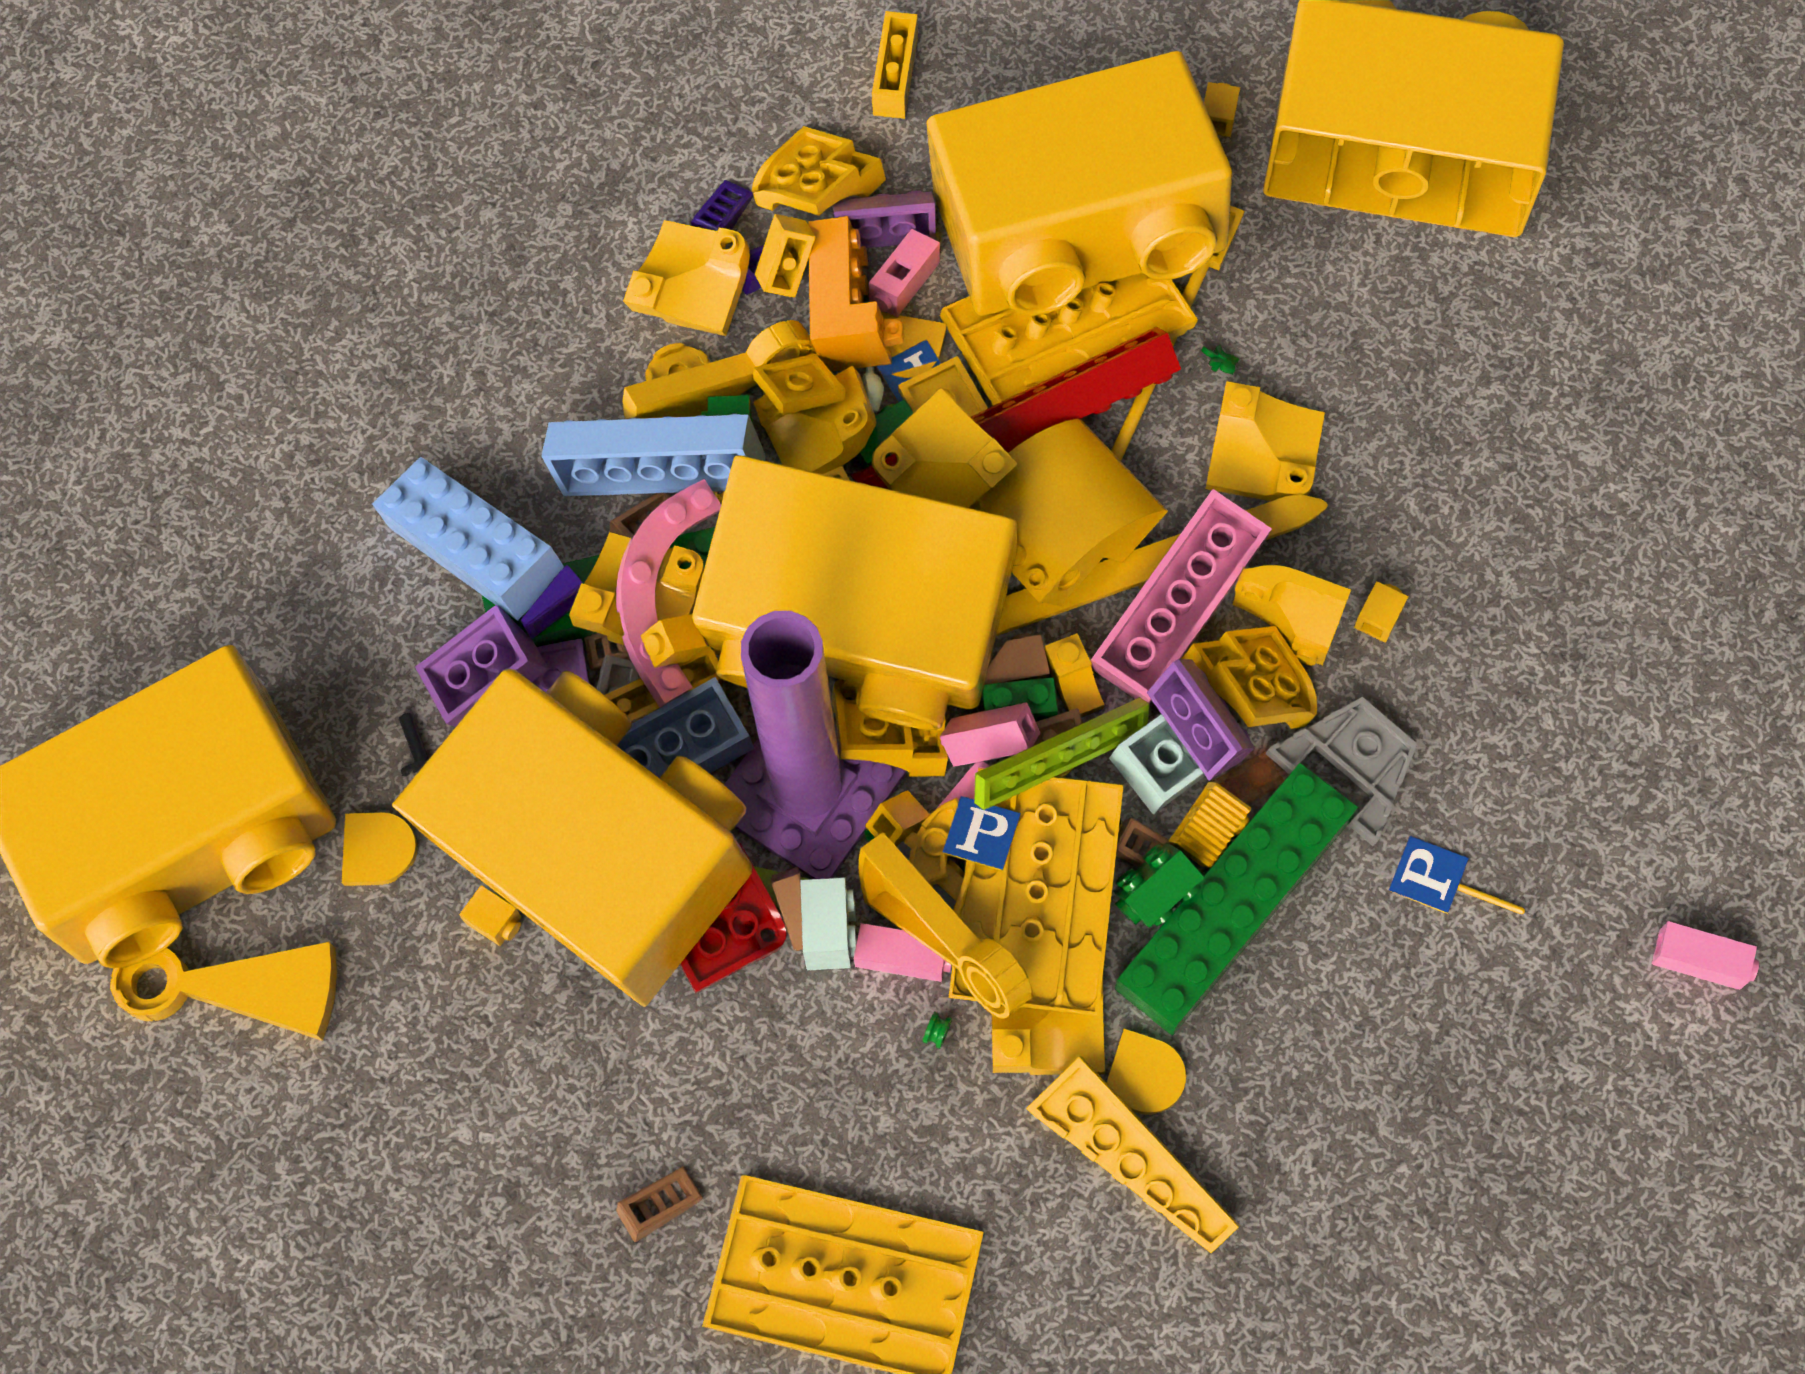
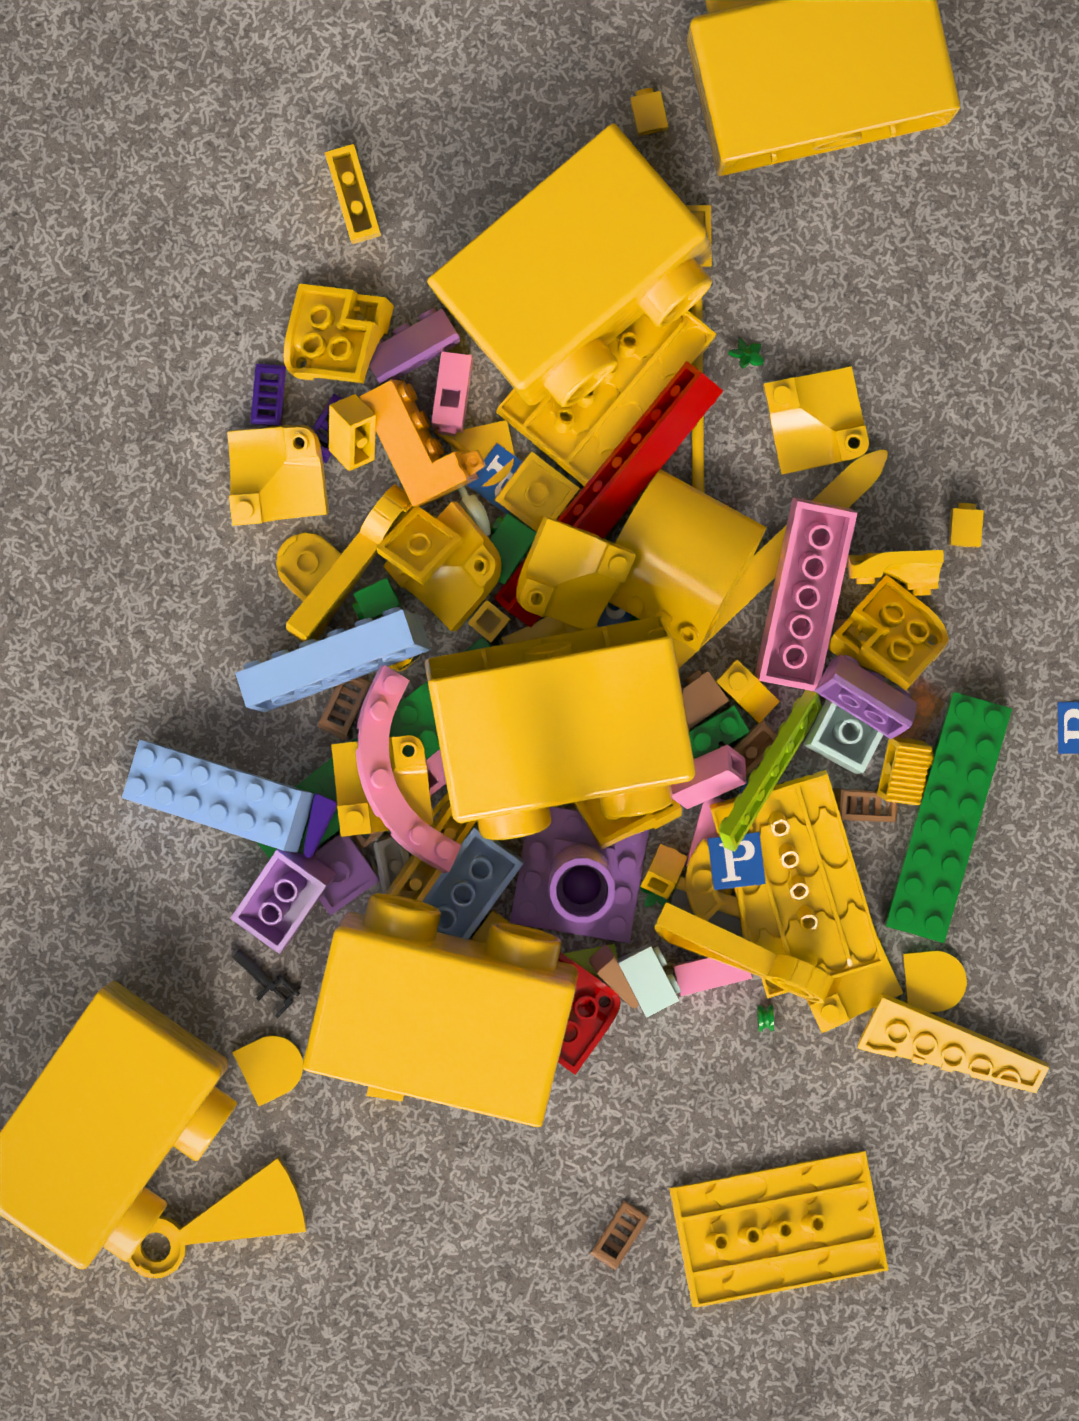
camera: 30 degrees left, 20 degrees up
(673, 641) = (434, 825): yellow brick -> none
(1157, 885) = (885, 840): green brick -> none
(1364, 749) = (997, 650): light grey wing -> none

